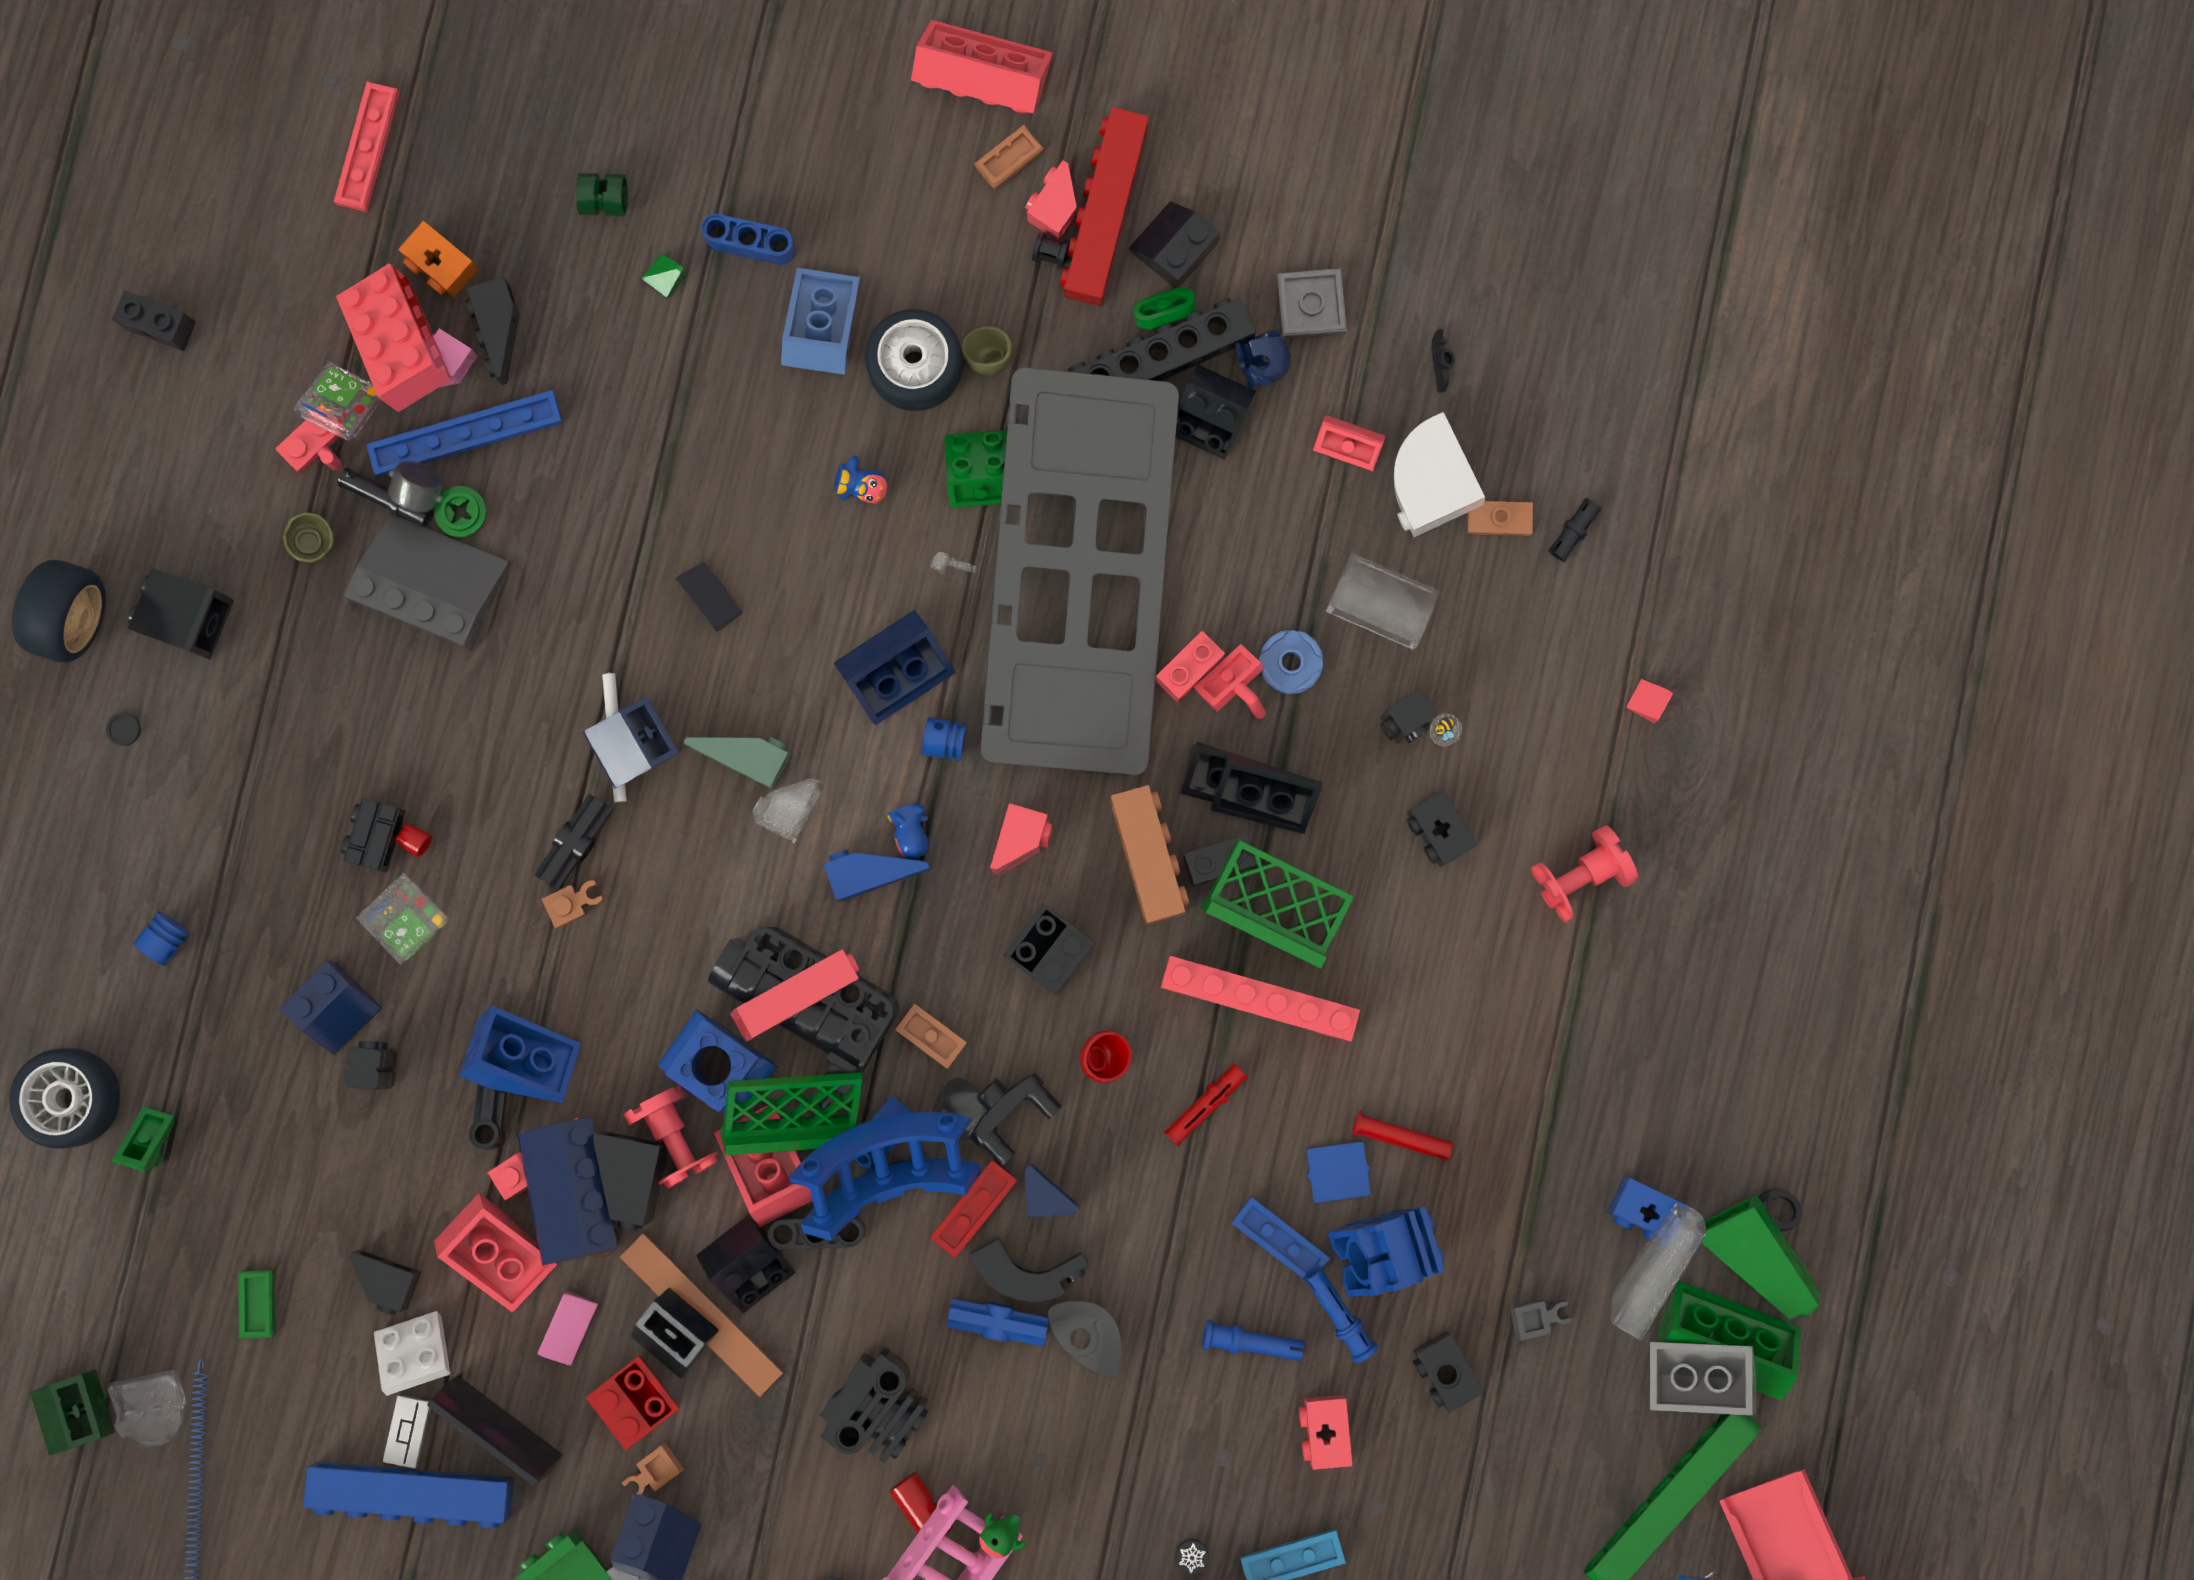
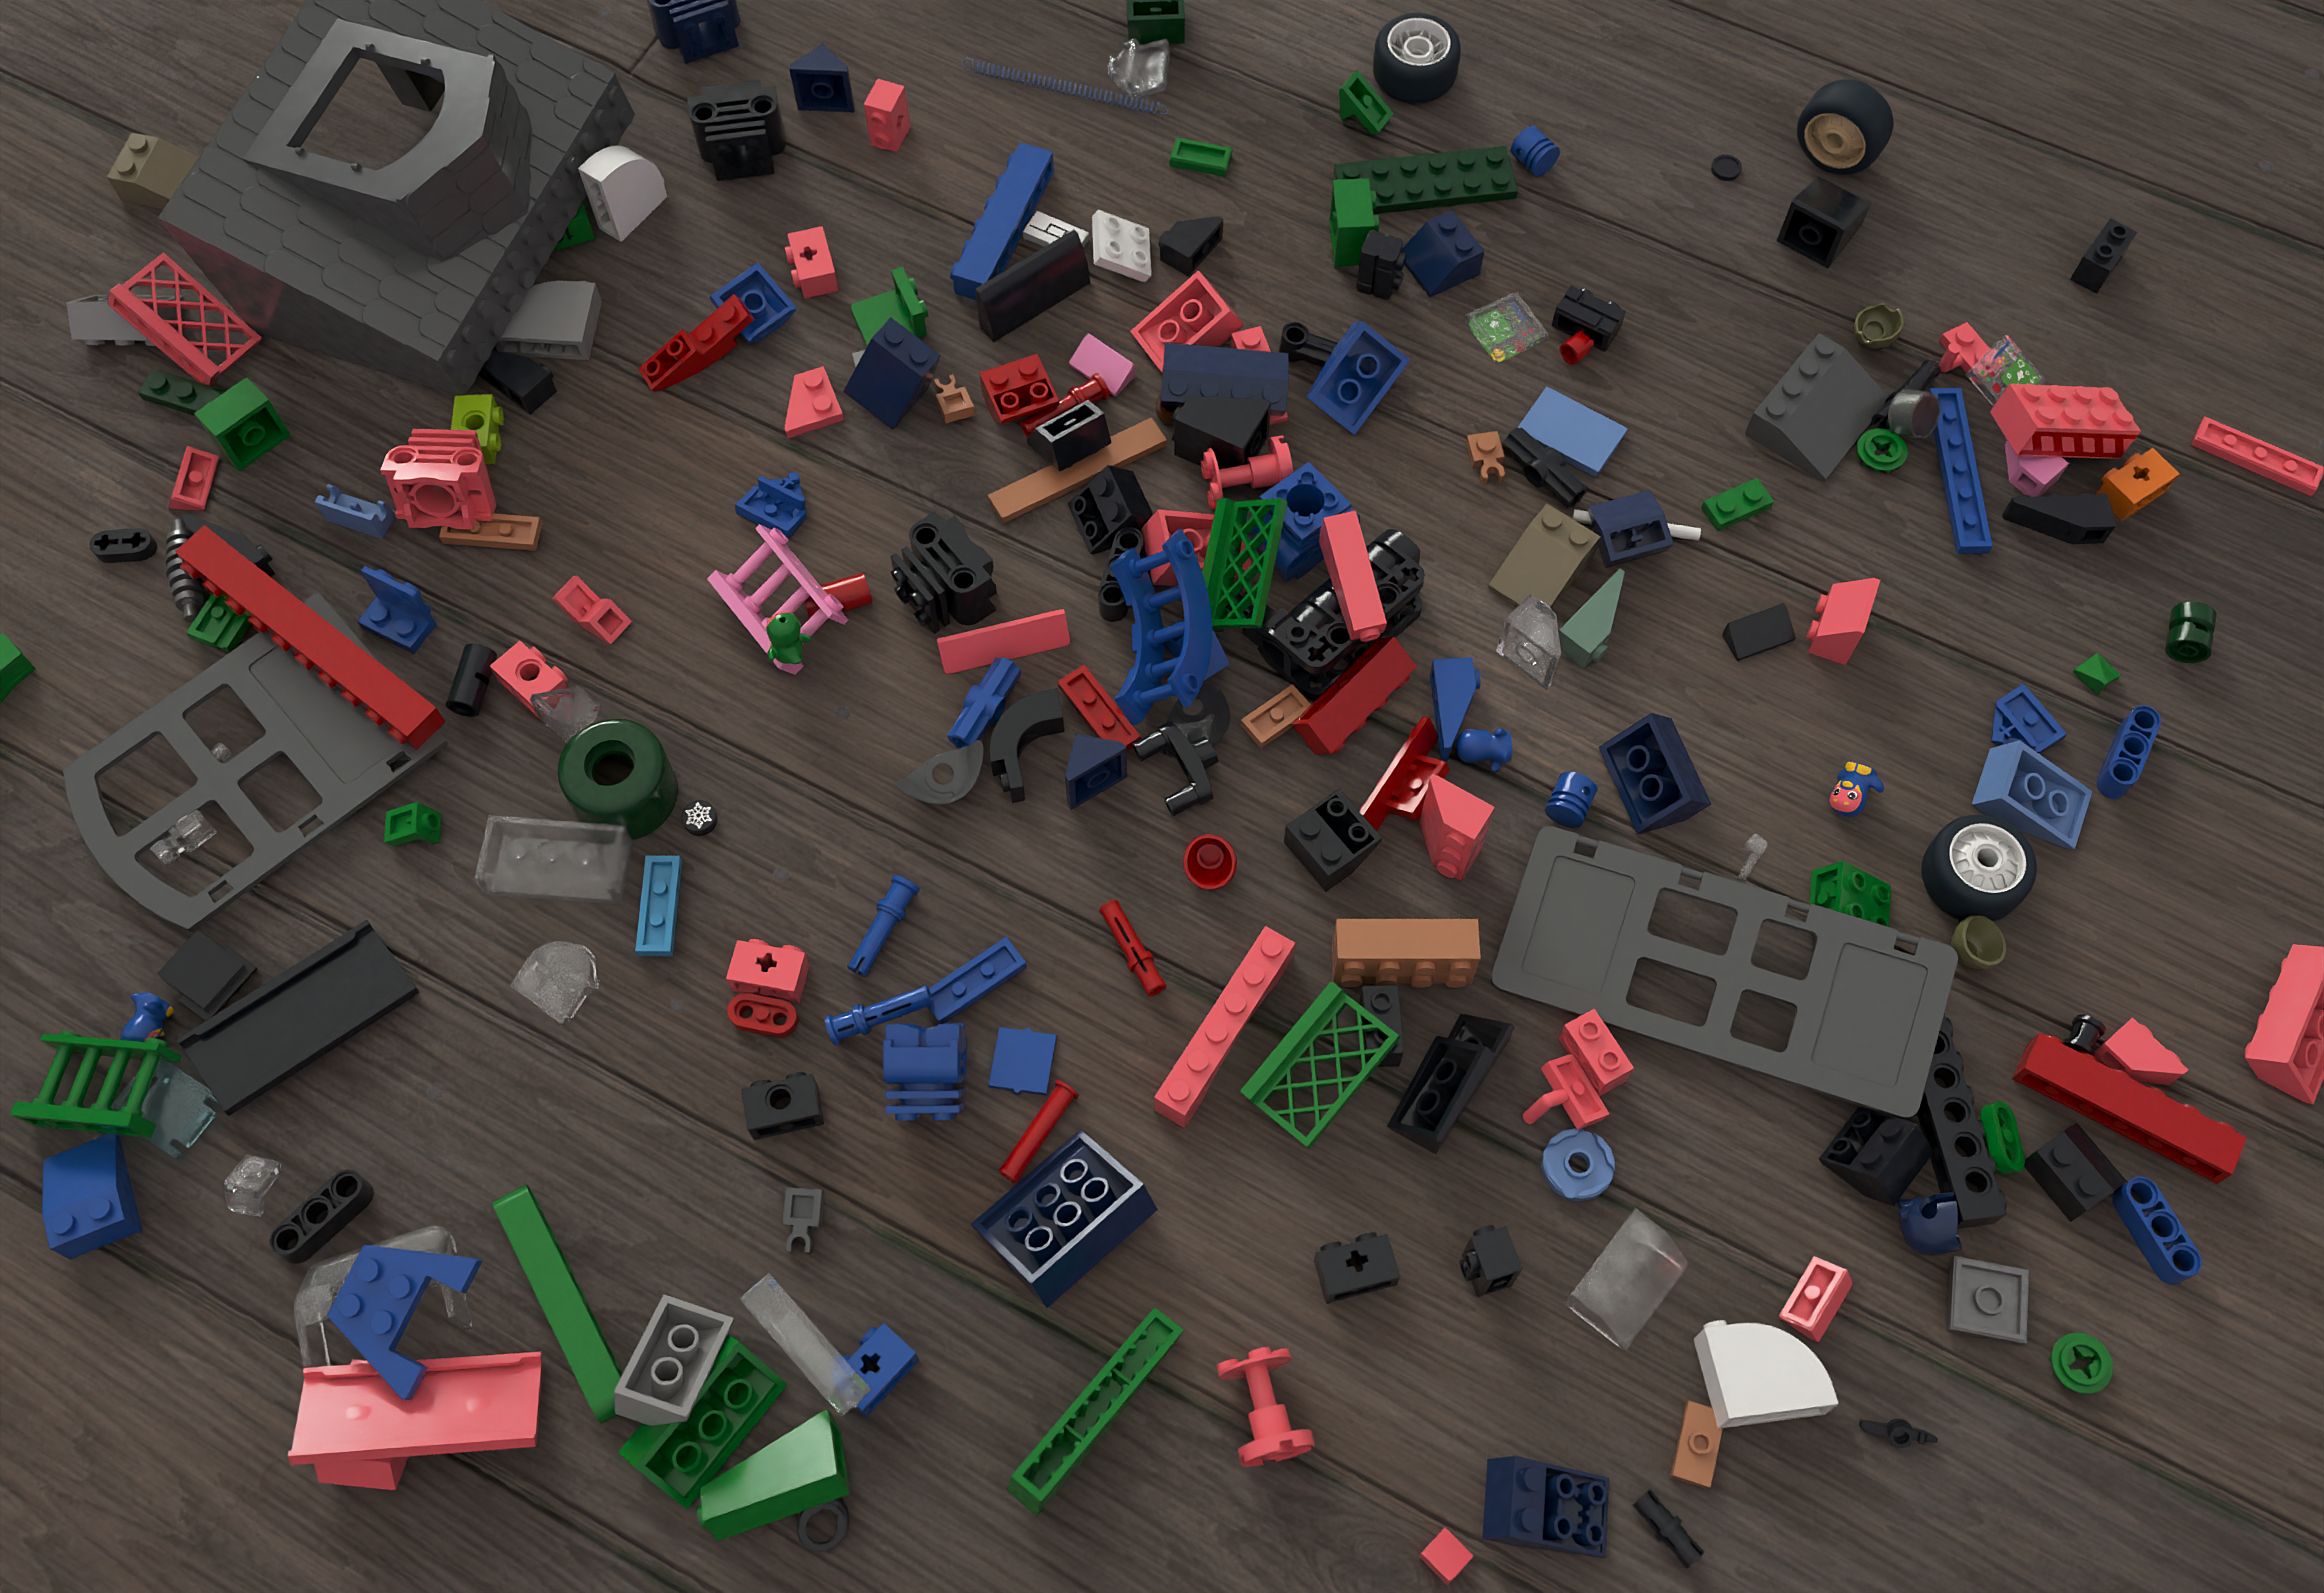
camera: 110 degrees right, 20 degrees down
(228, 1049) = (1435, 179): none -> dark green plate
(316, 1113) = (1351, 219): none -> green brick
(519, 824) = (1574, 431): none -> medium blue tile
(563, 643) = (1737, 504): none -> green plate
(619, 1341) = (1092, 390): none -> red pin
(680, 521) = (1842, 619): none -> coral slope
(689, 818) = (1545, 559): none -> dark tan slope
(740, 337) = (2024, 719): none -> blue slope
(896, 966) = (1354, 696): none -> red brick
(924, 1325) = (1006, 640): none -> coral slope
(967, 893) = (1407, 778): none -> red bracket
(1009, 157) = (2194, 1024): nougat plate -> none
(1218, 160) = (2156, 1249): none -> blue beam
(1342, 208) = (2083, 1346): none -> green gear
(1369, 1421) = (765, 1013): none -> red plate
(1445, 729) = (1465, 1308): tile -> none
(1471, 1091) = (1065, 1217): none -> dark blue slope
(1589, 630) = (1545, 1507): none -> dark blue slope
(1625, 1013) = (1093, 1412): none -> green slope

